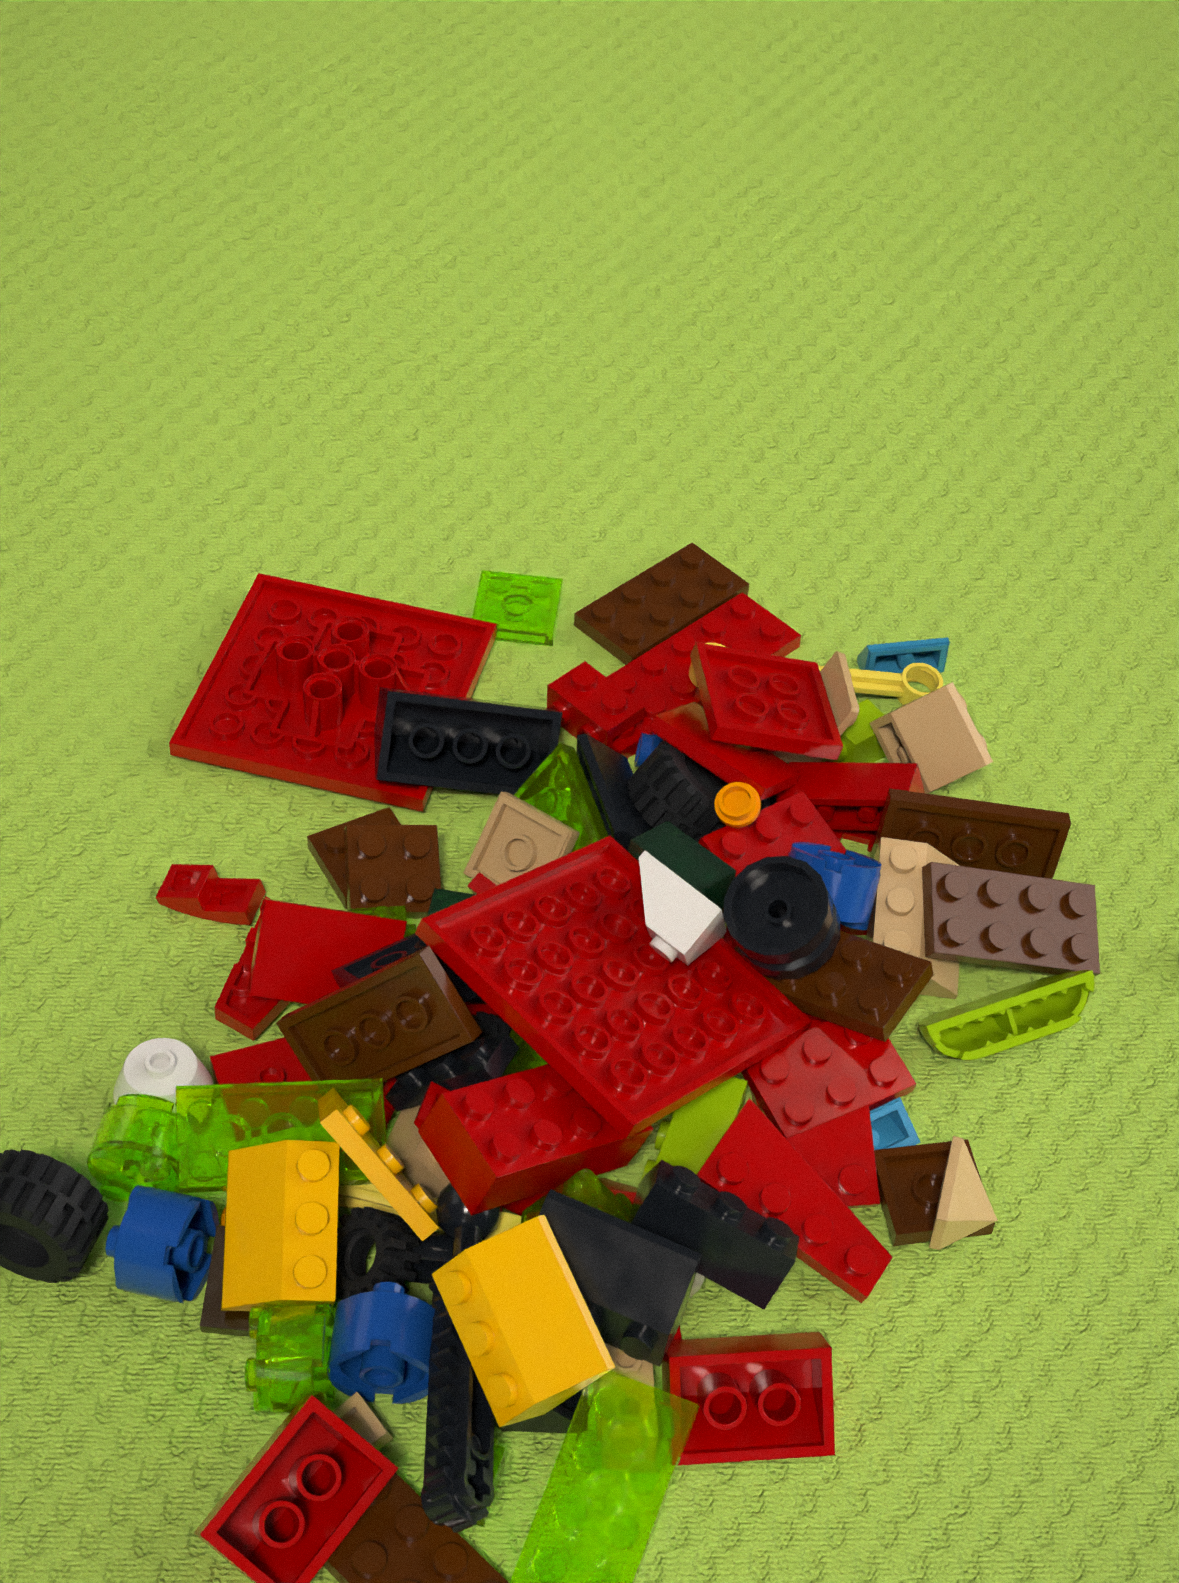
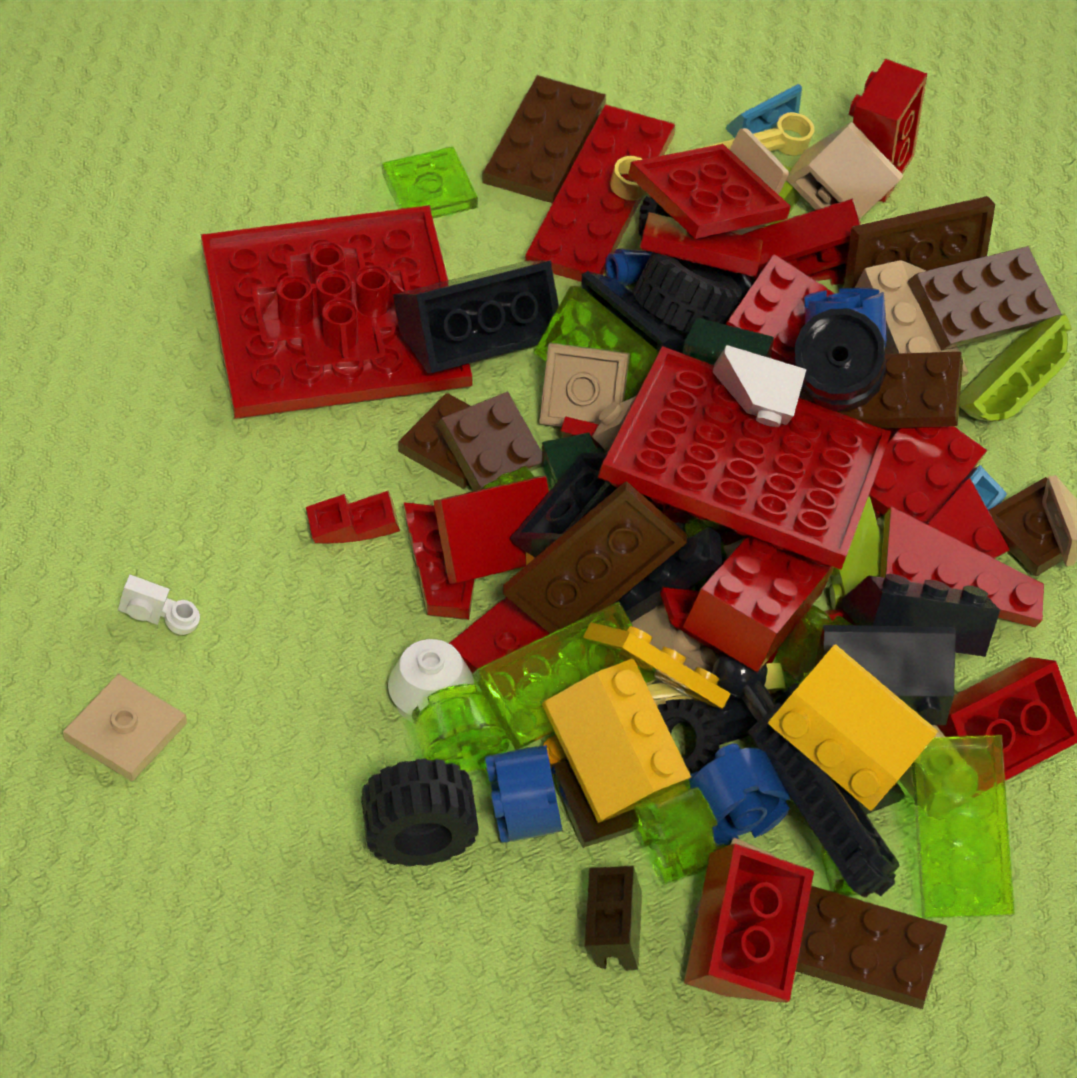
camera: 25 degrees left, 5 degrees up
(169, 1423) = (614, 915): none -> dark brown hinge
(593, 704) = (564, 243): red bracket -> none
(737, 804) = (743, 283): light orange plate -> none
(1011, 703) = (891, 112): none -> red brick

